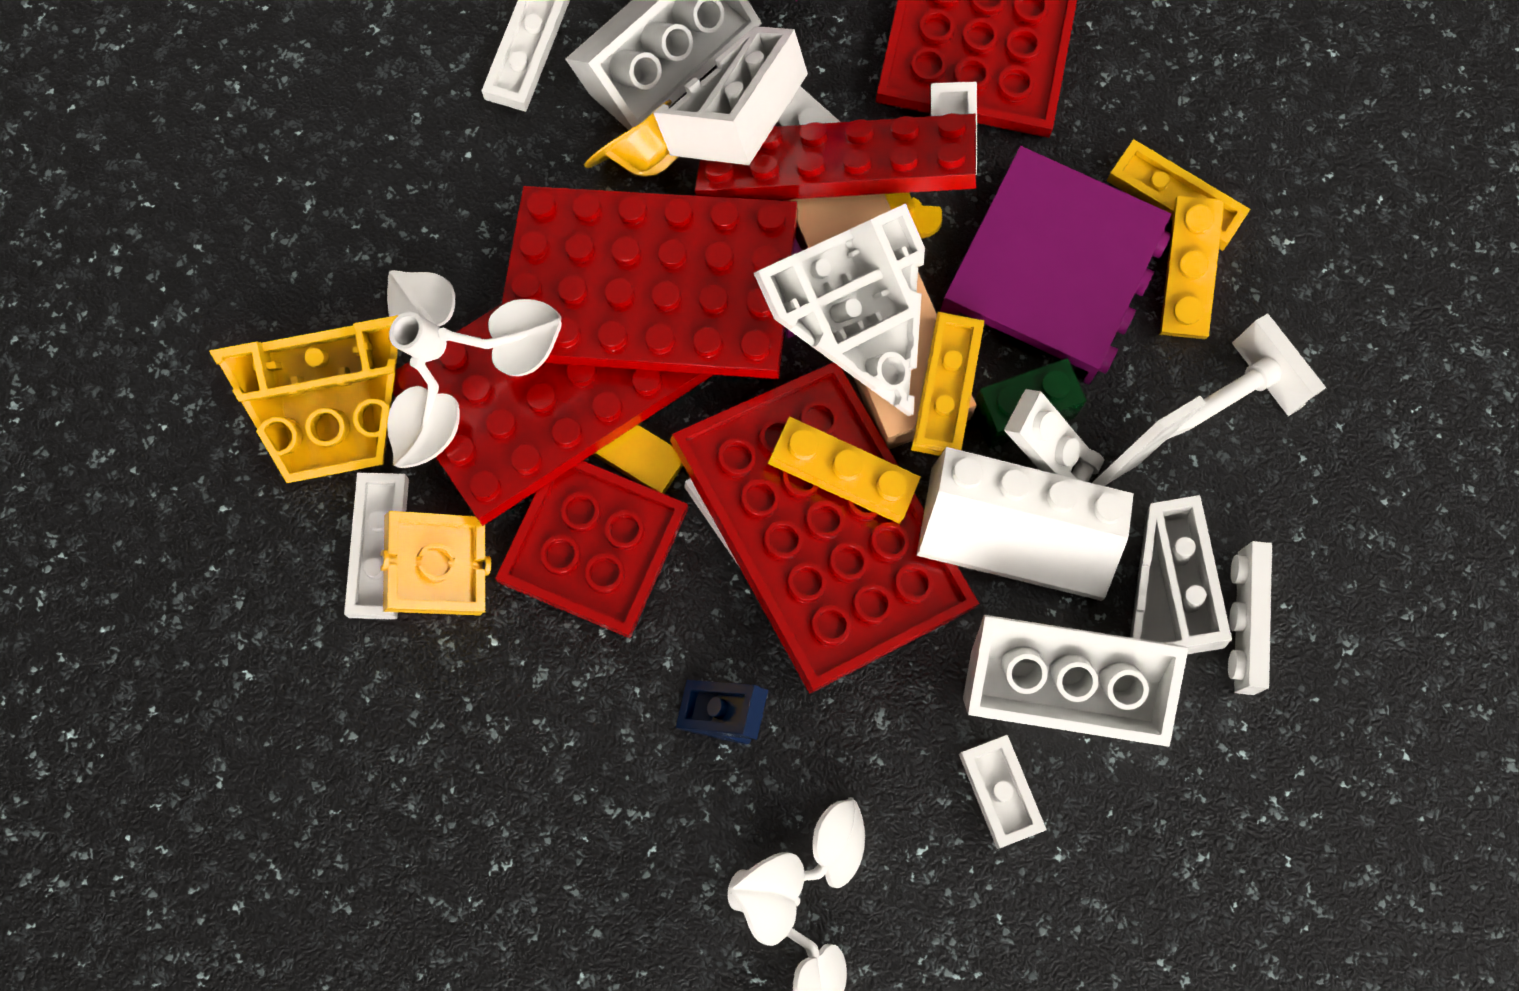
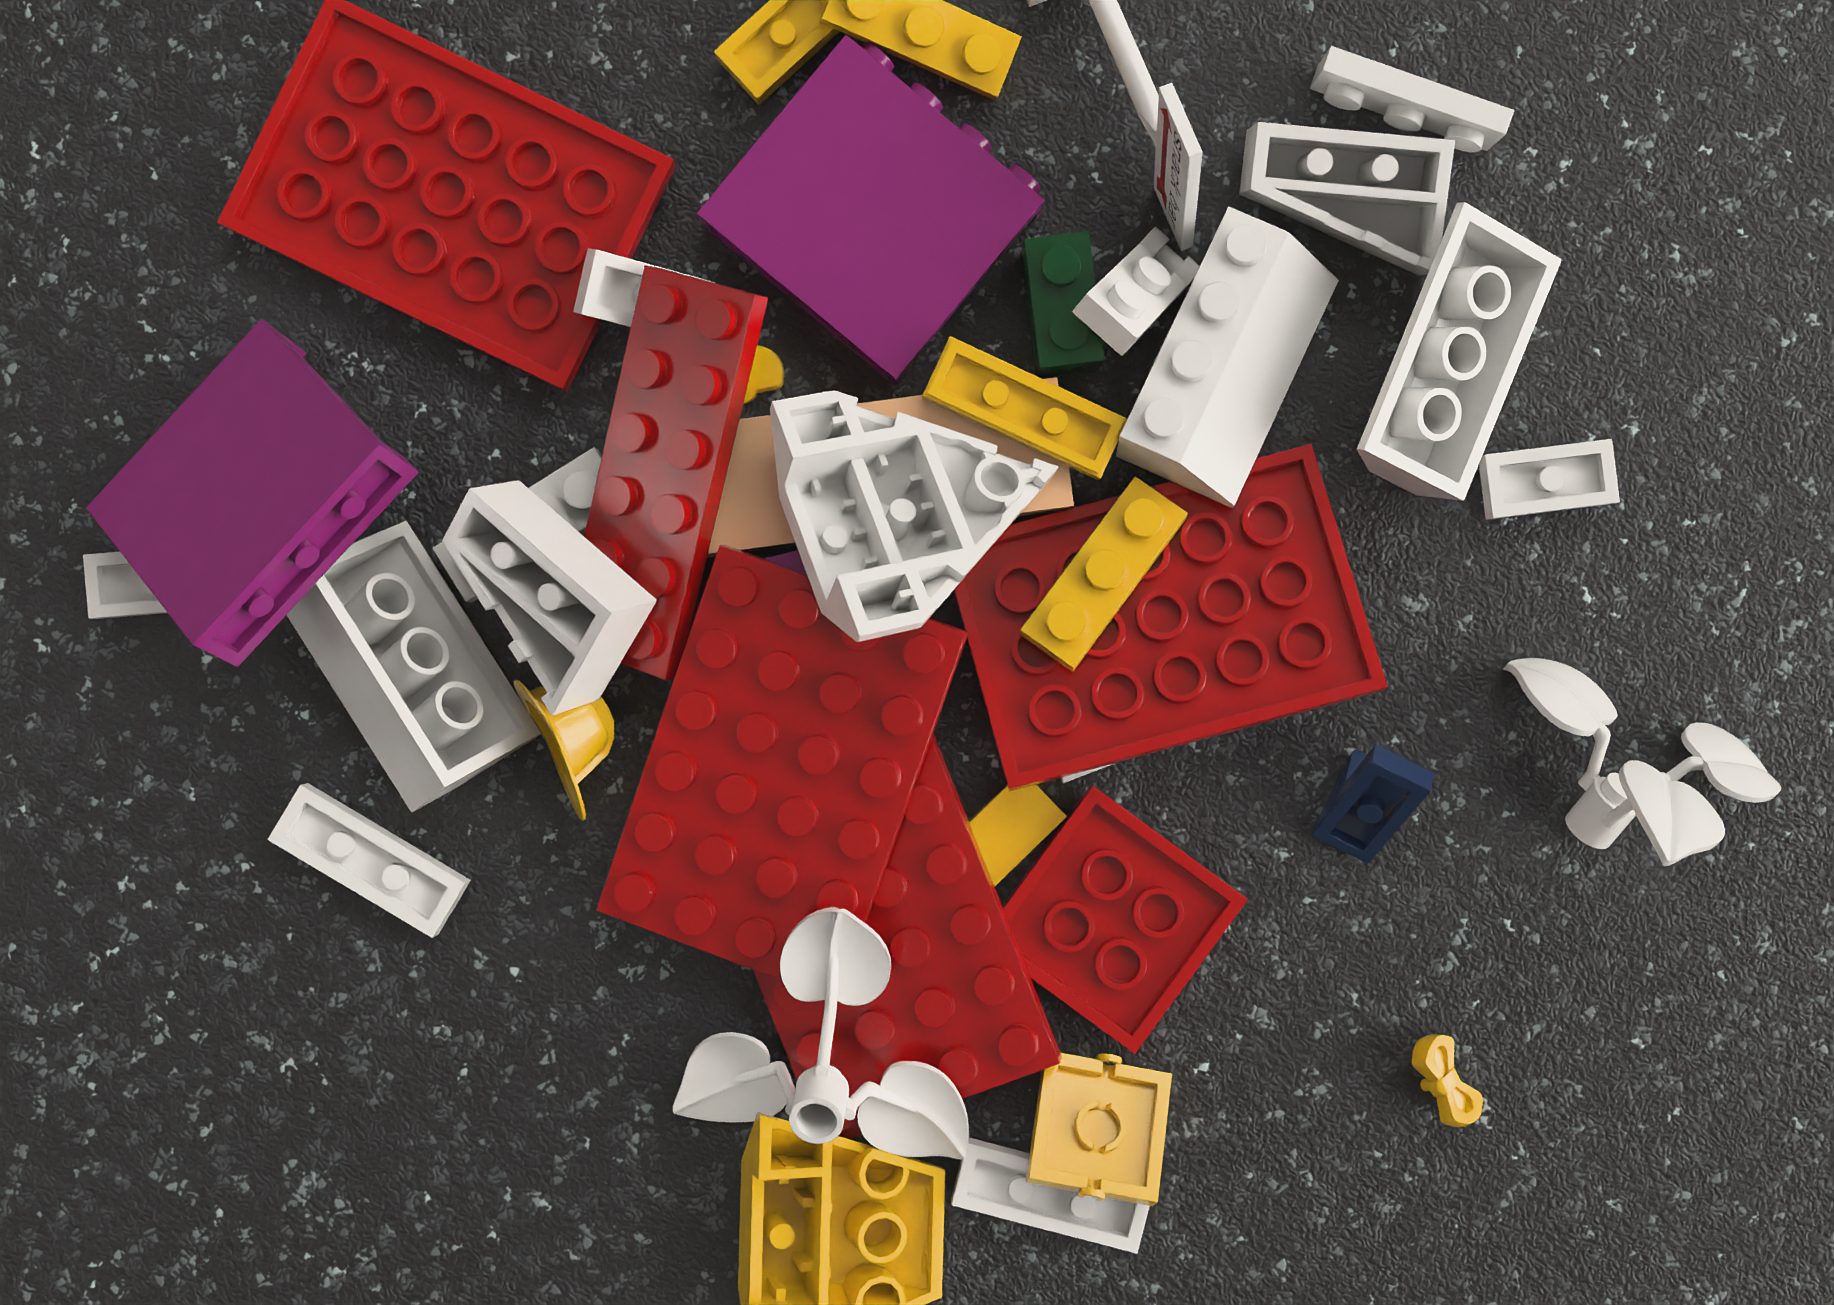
camera: 75 degrees left, 15 degrees up
(506, 835) = (1457, 1102): none -> yellow piece

